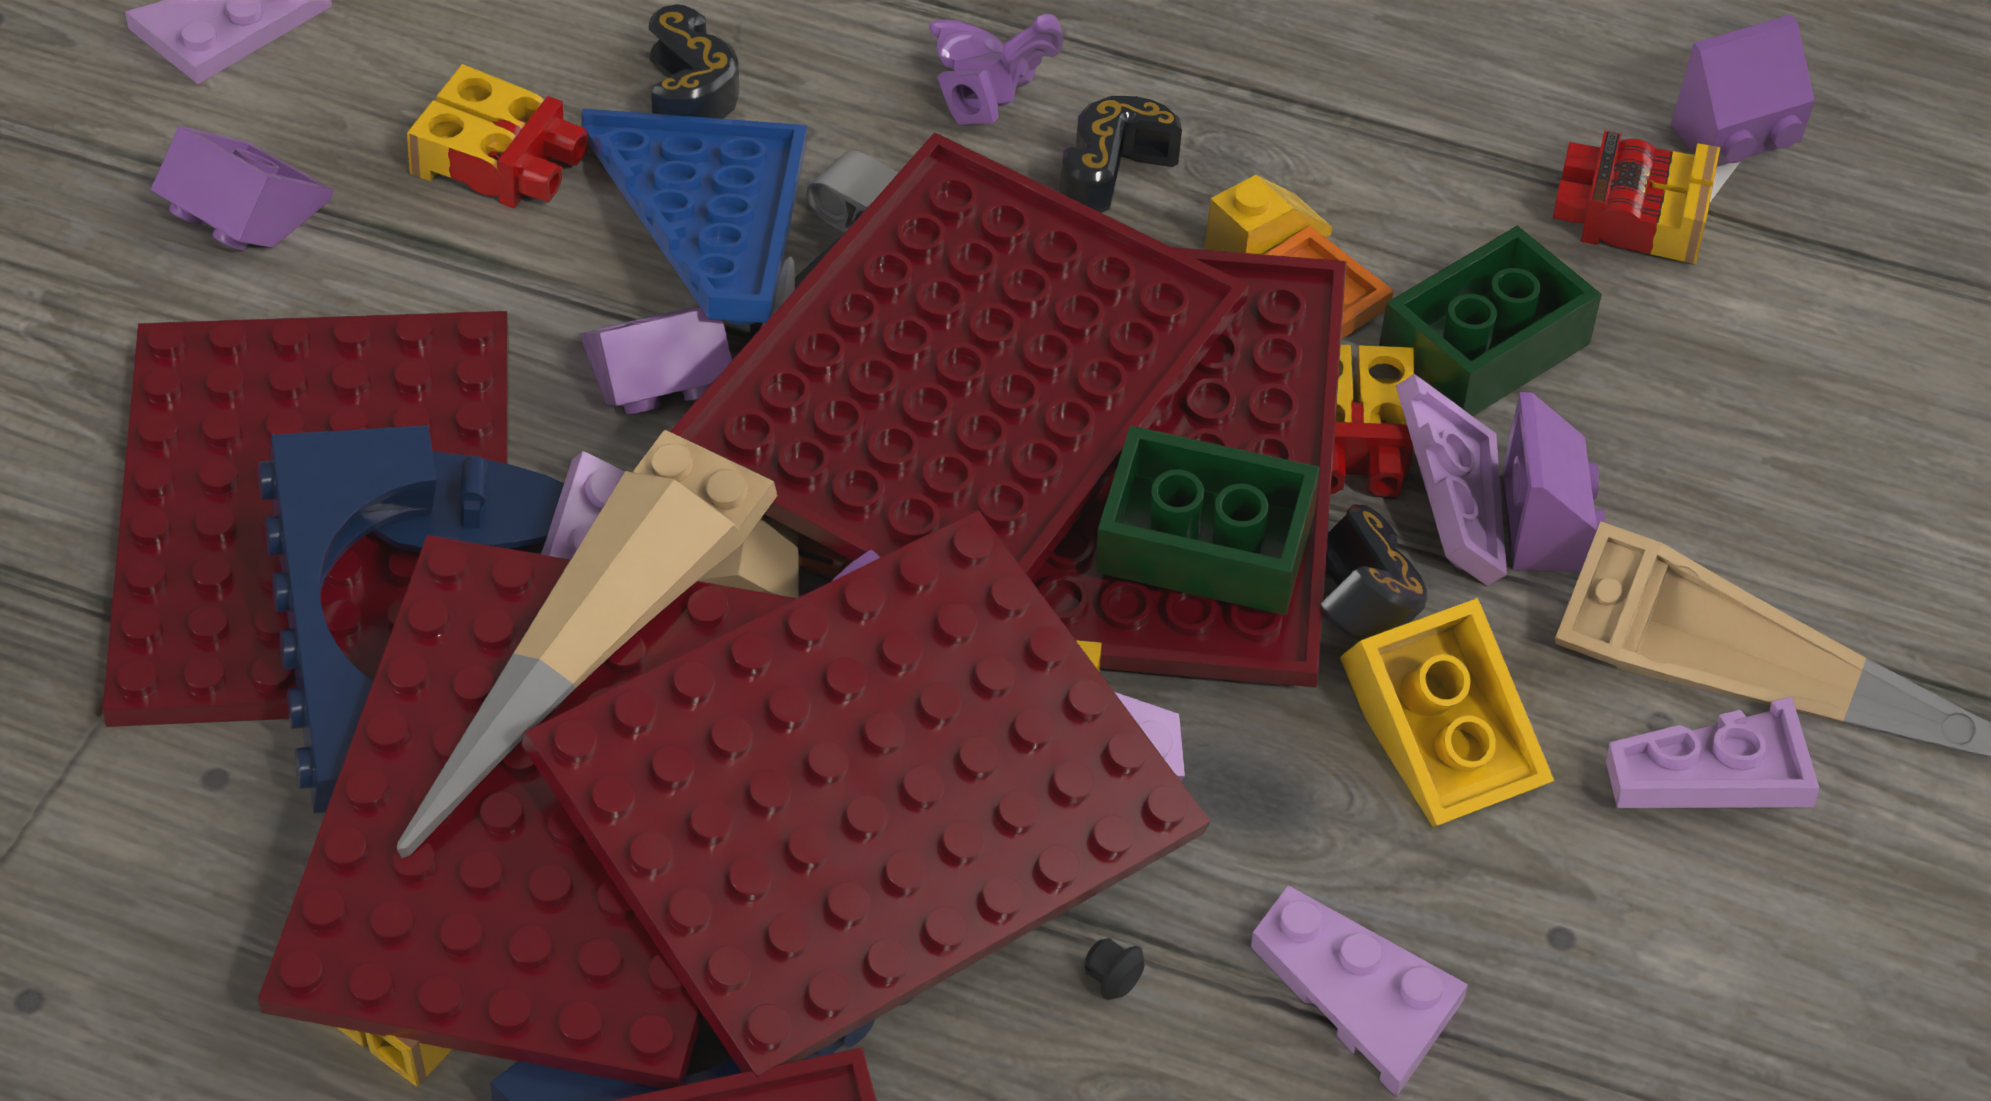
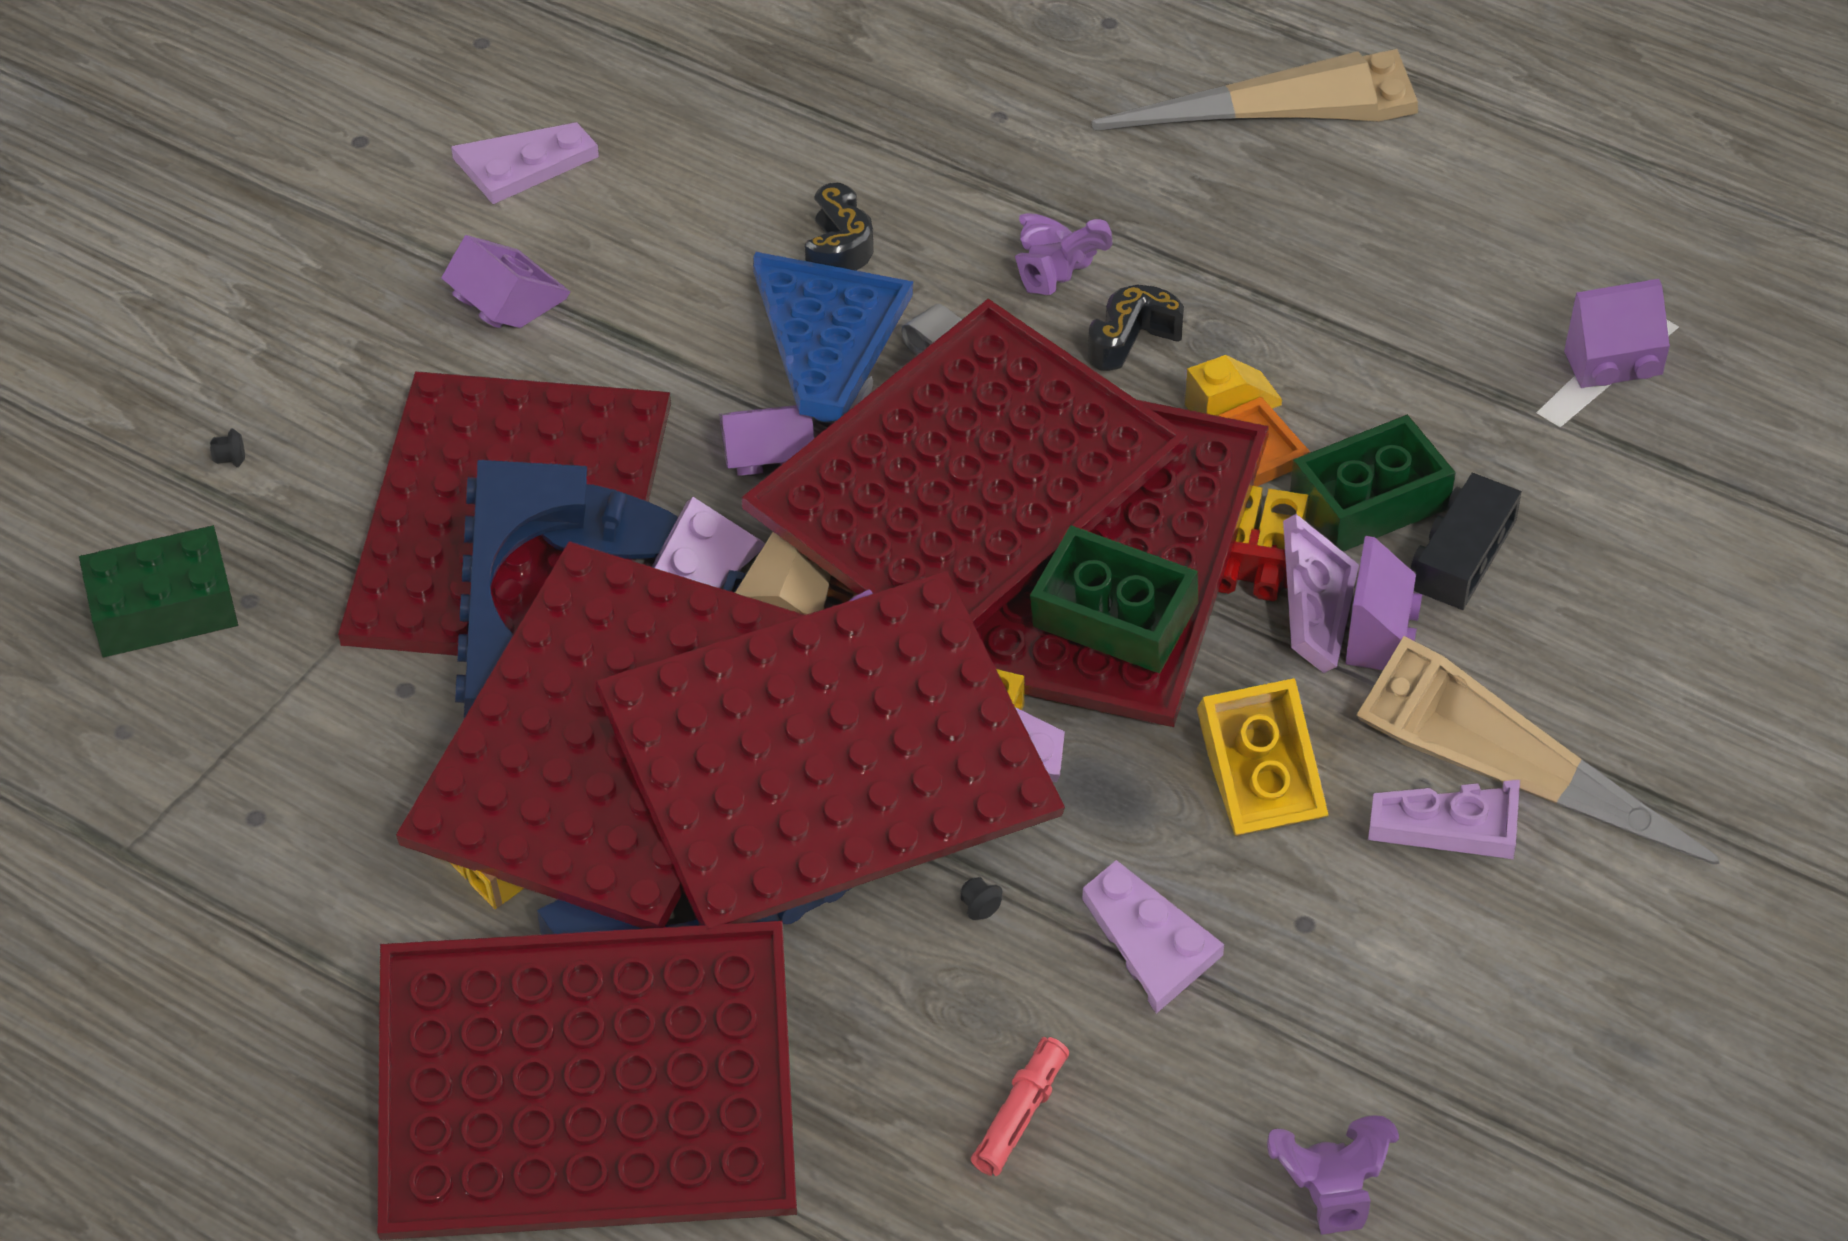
camera: 15 degrees right, 0 degrees up
(494, 138) = (689, 267): hips -> none
(645, 548) = (710, 568): tan plate -> none
(1374, 579) = (1232, 655): black animal -> none
(1627, 382) = (1465, 540): none -> black brick
(1638, 195) = (1518, 402): hips -> none

